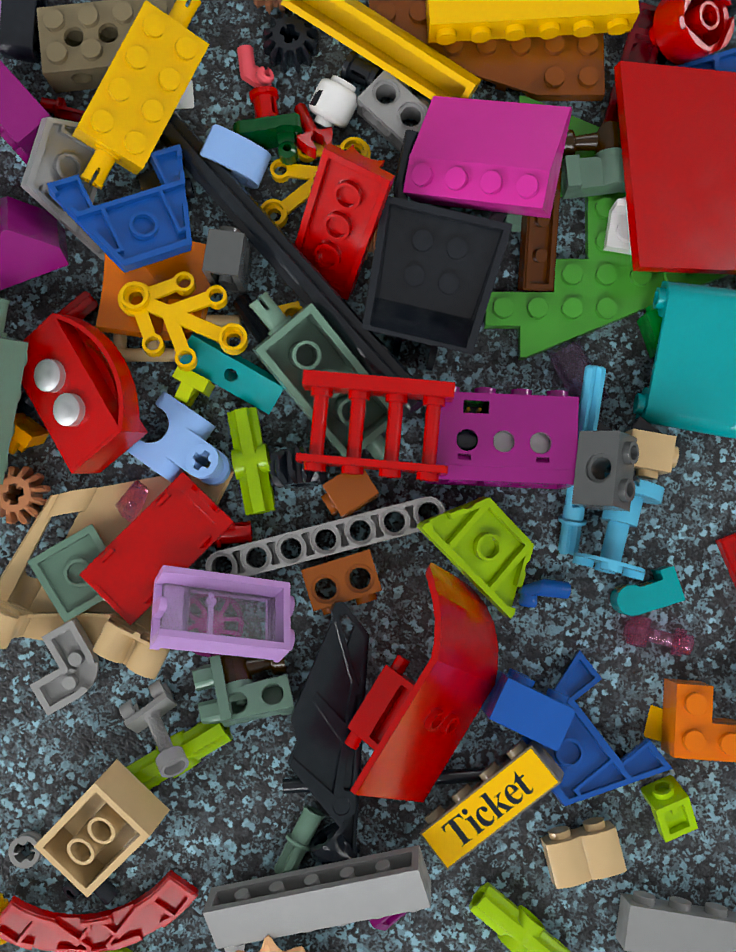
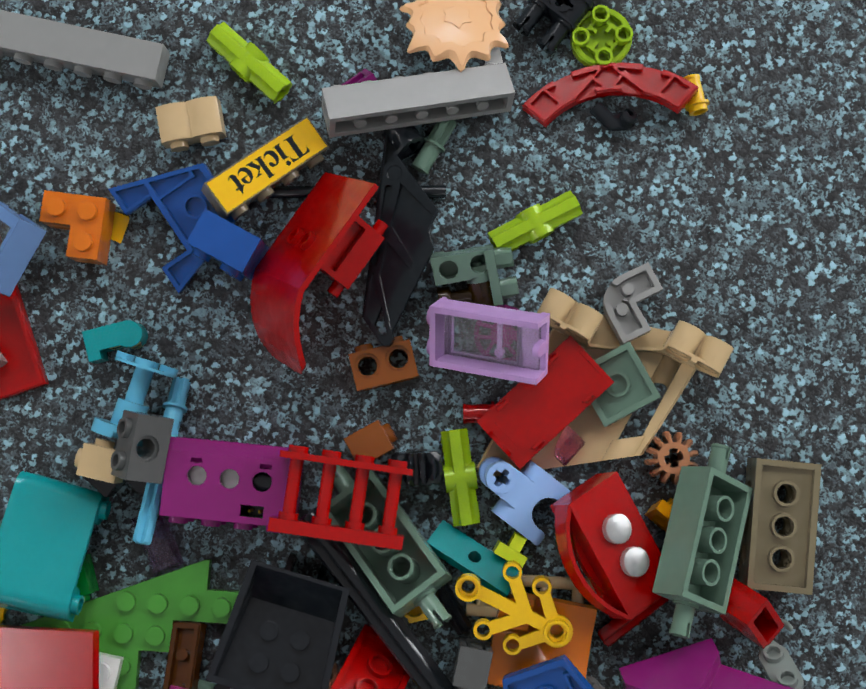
camera: 175 degrees left, 0 degrees up
(15, 854) = (671, 159): light grey bush -> none
(102, 828) = (598, 165): tan brick -> none
(172, 758) = (537, 219): light grey bar -> none
(308, 539) = (380, 401): light grey beam -> none
(483, 548) = (255, 386): lime wing -> none
(544, 588) = (206, 349): blue arm -> none
(639, 631) = (124, 306): clear pink bar -> none
(670, 808) = (113, 156): lime bracket -> none

